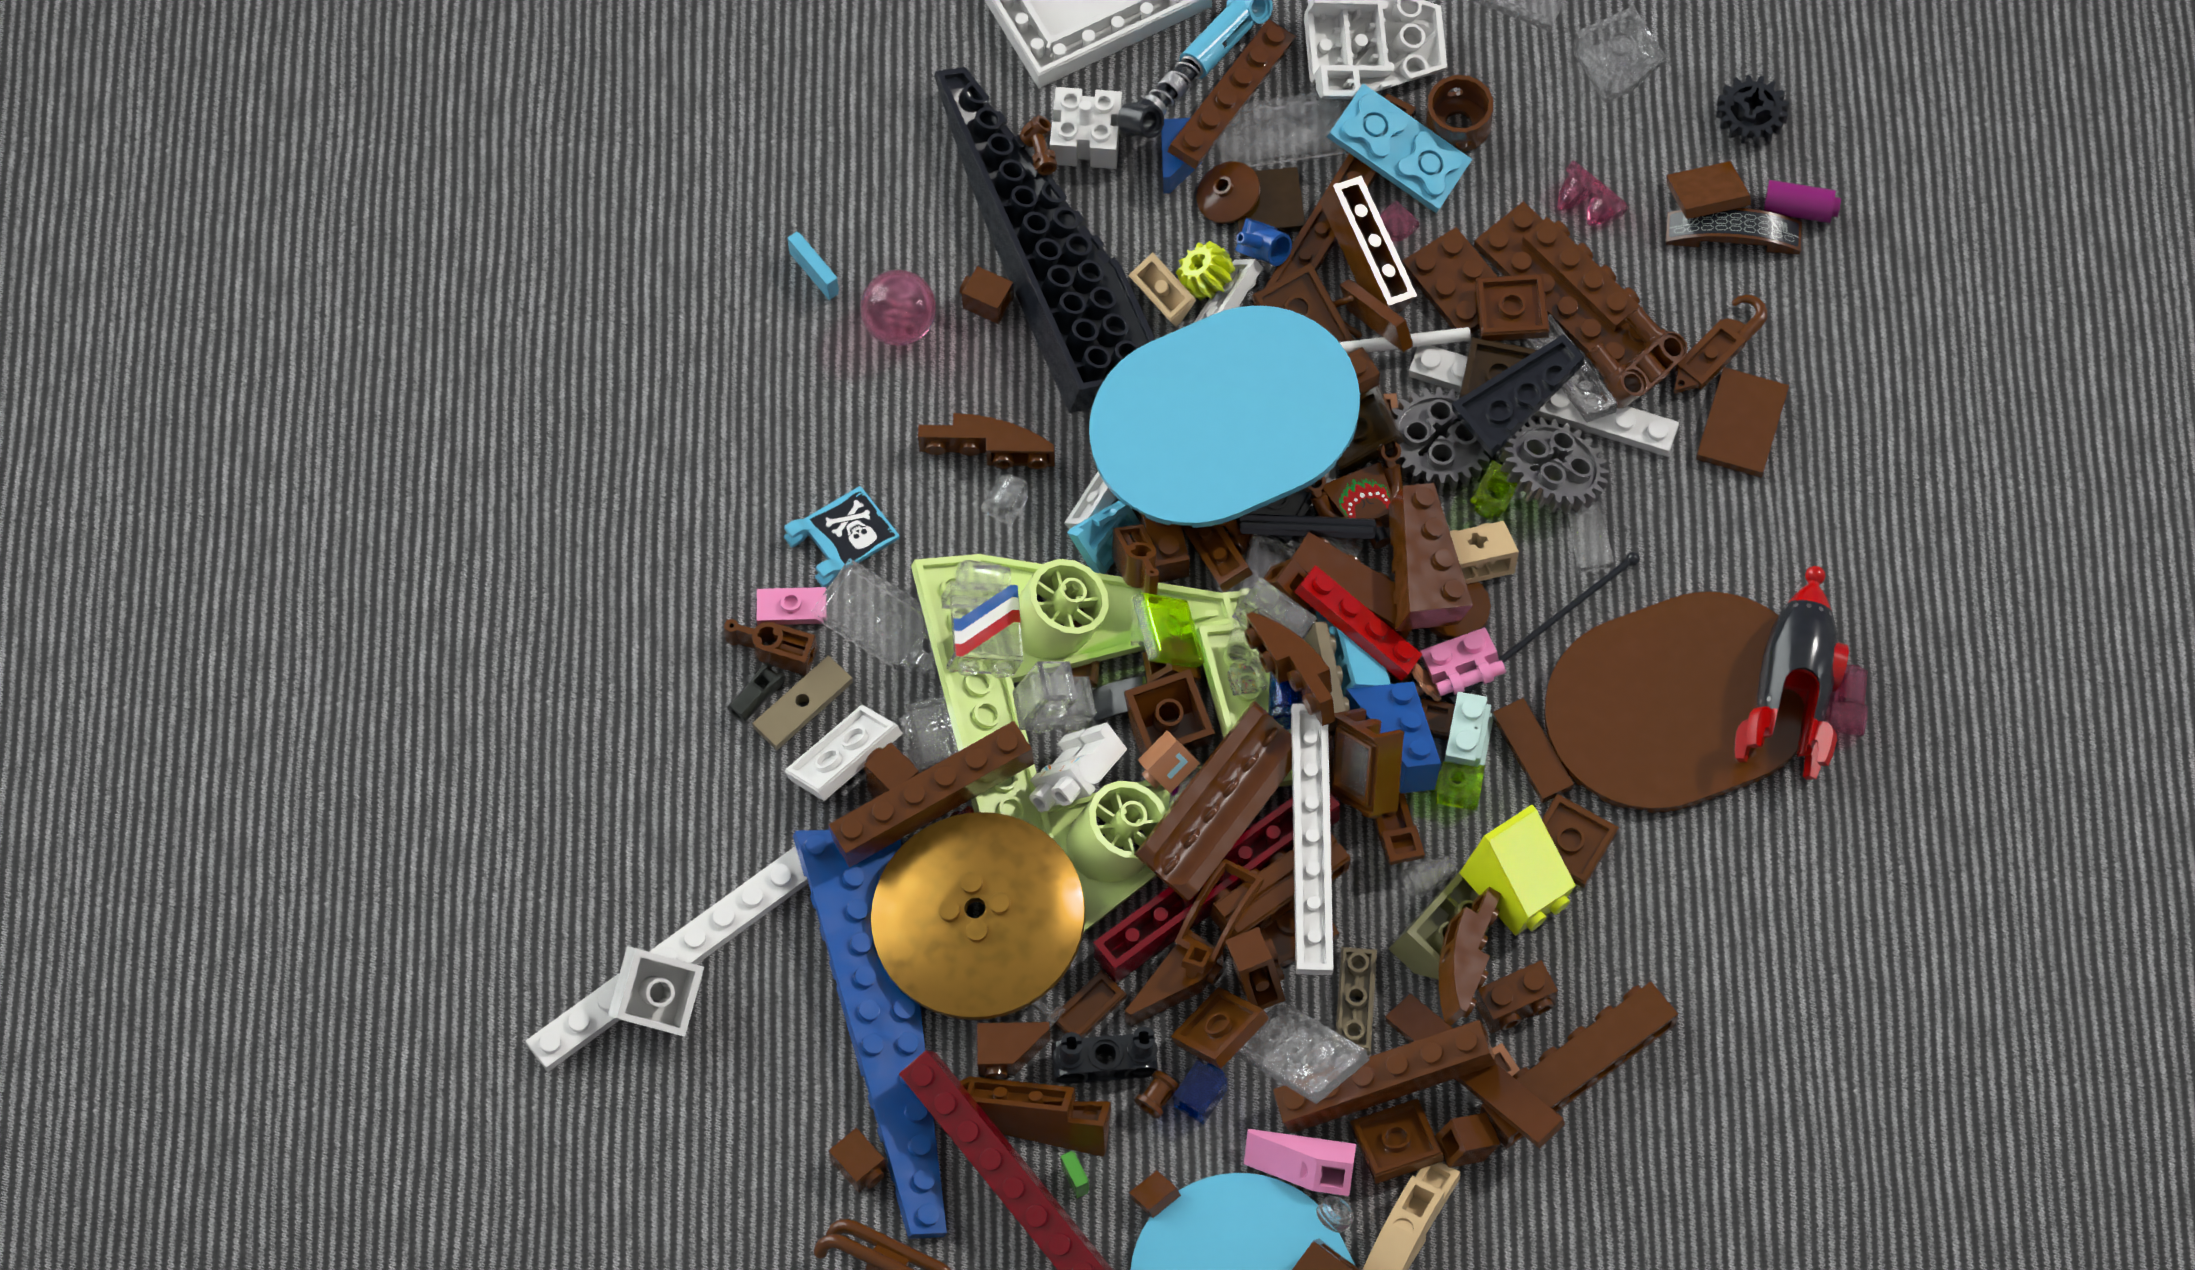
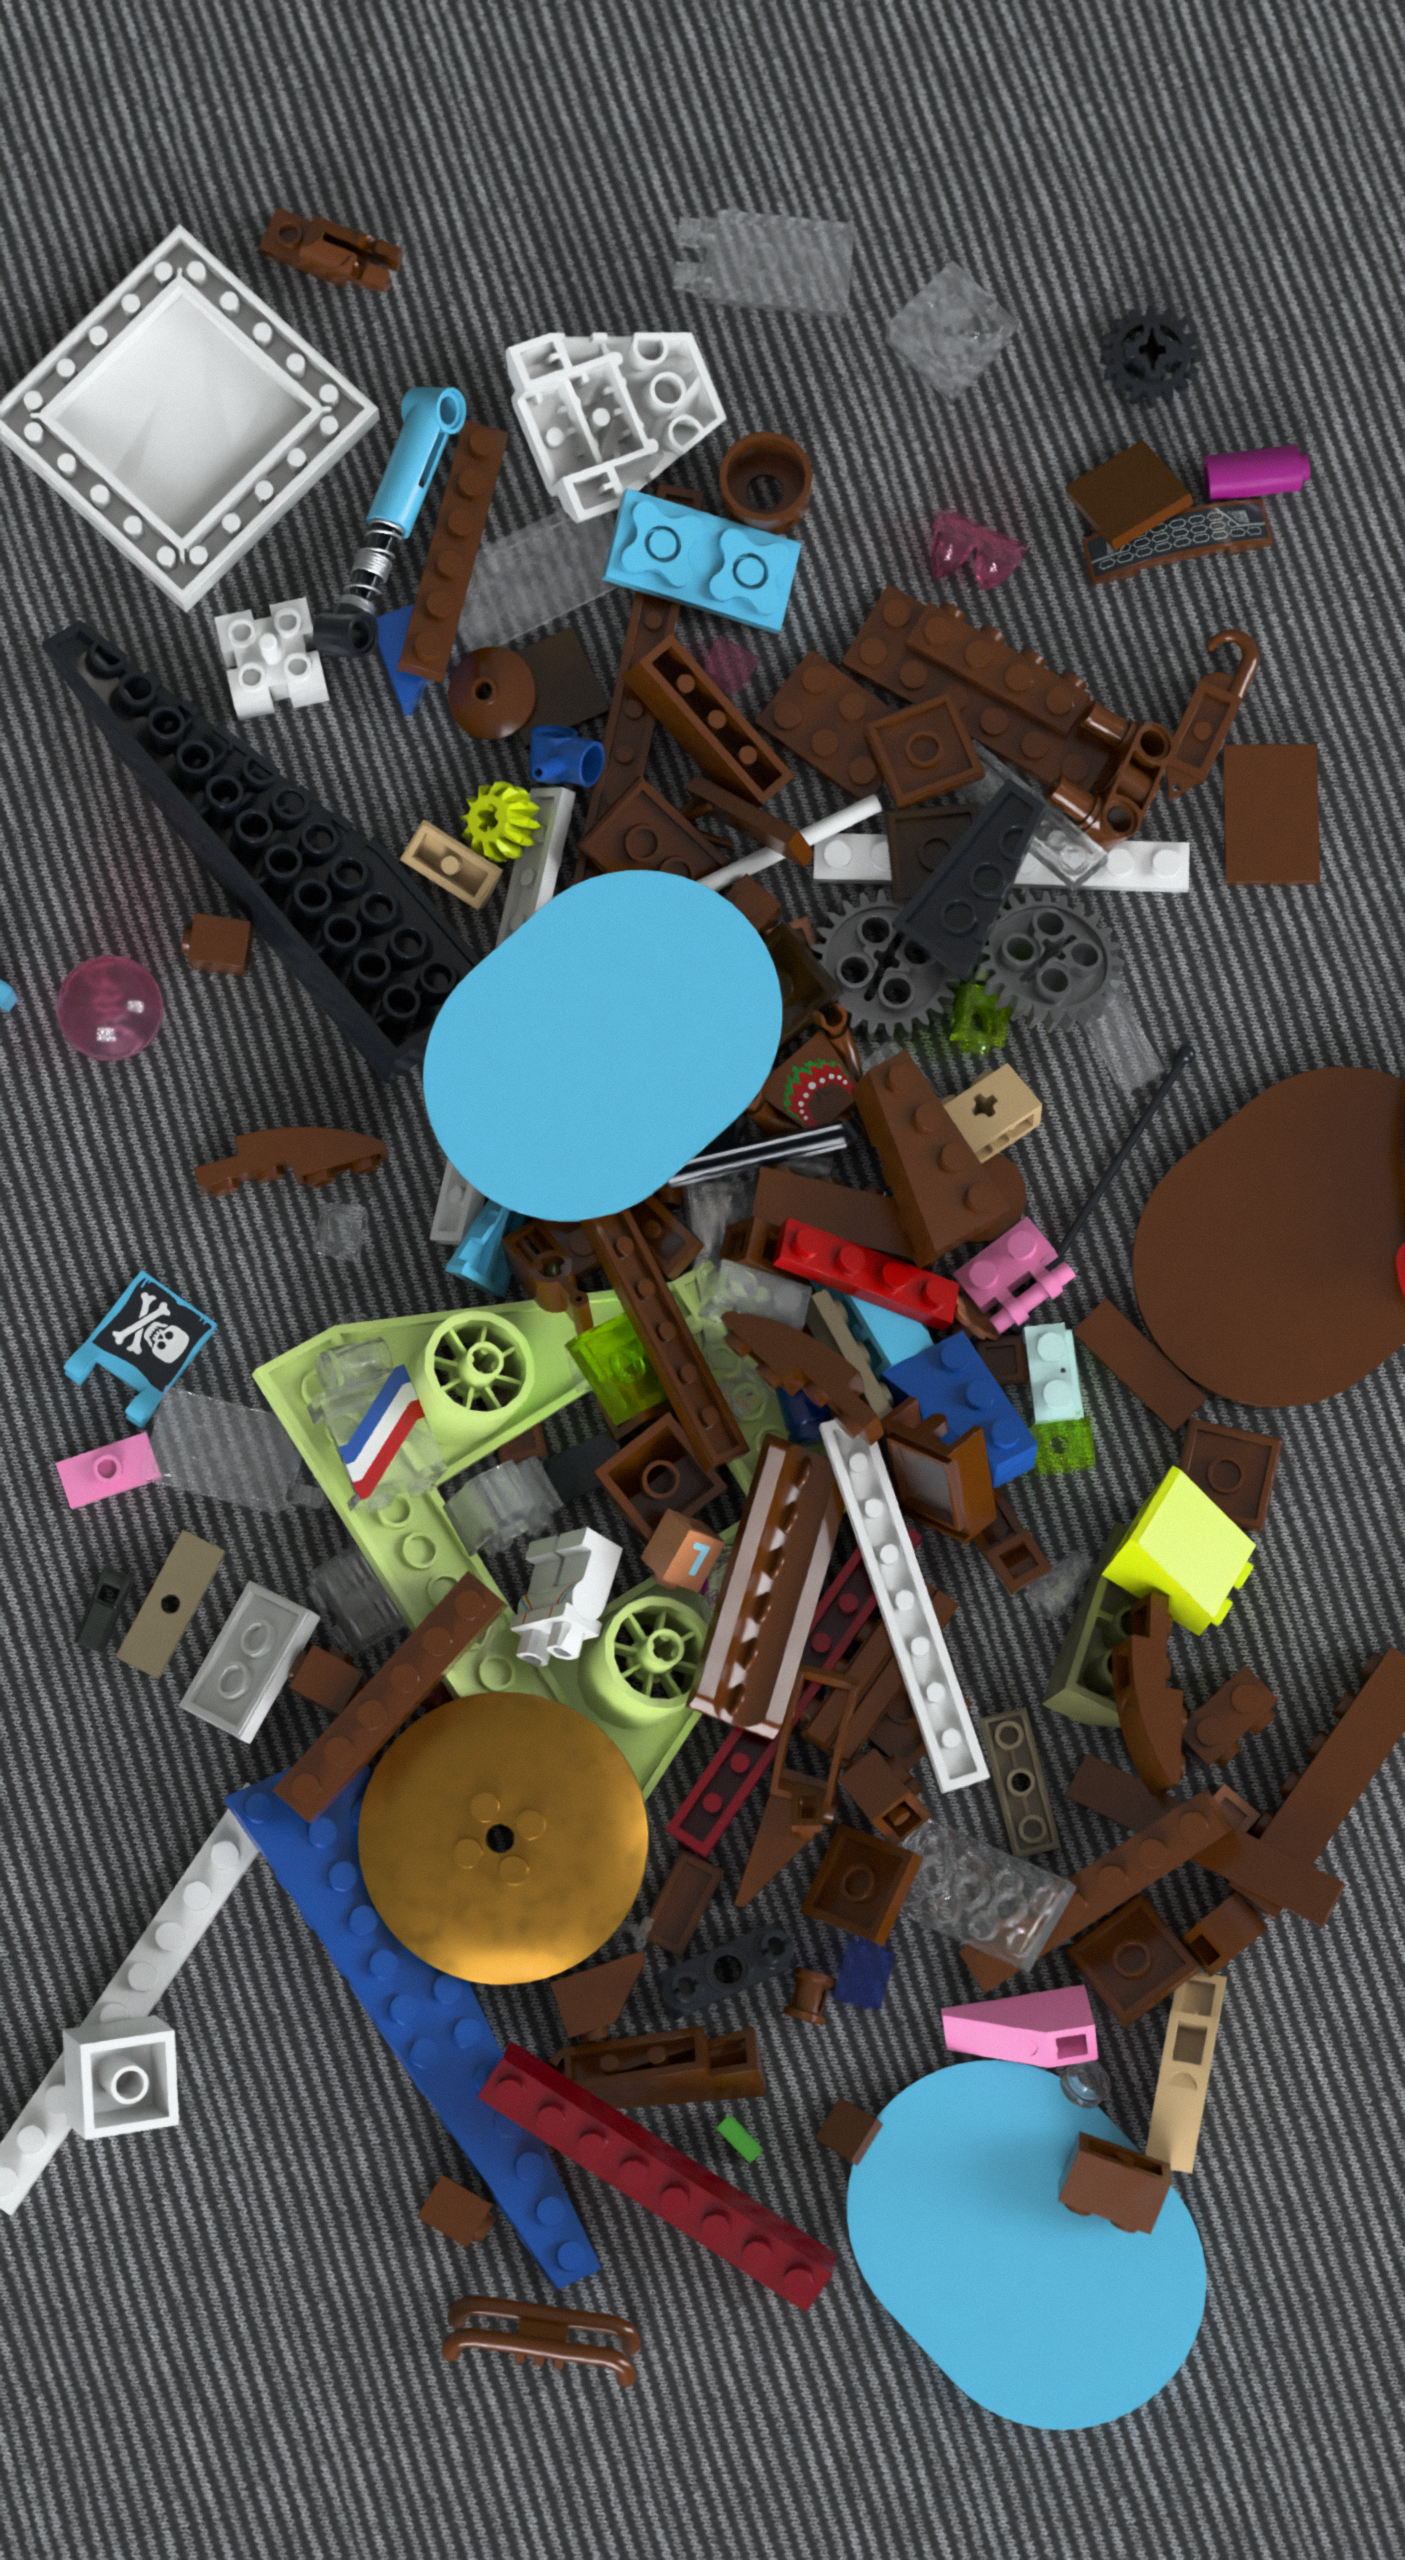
camera: 20 degrees left, 15 degrees up
(791, 651) = (130, 1538): reddish brown piece -> none
(1034, 135) = (206, 695): reddish brown bar -> none
(1204, 621) = (666, 1339): none -> reddish brown tile

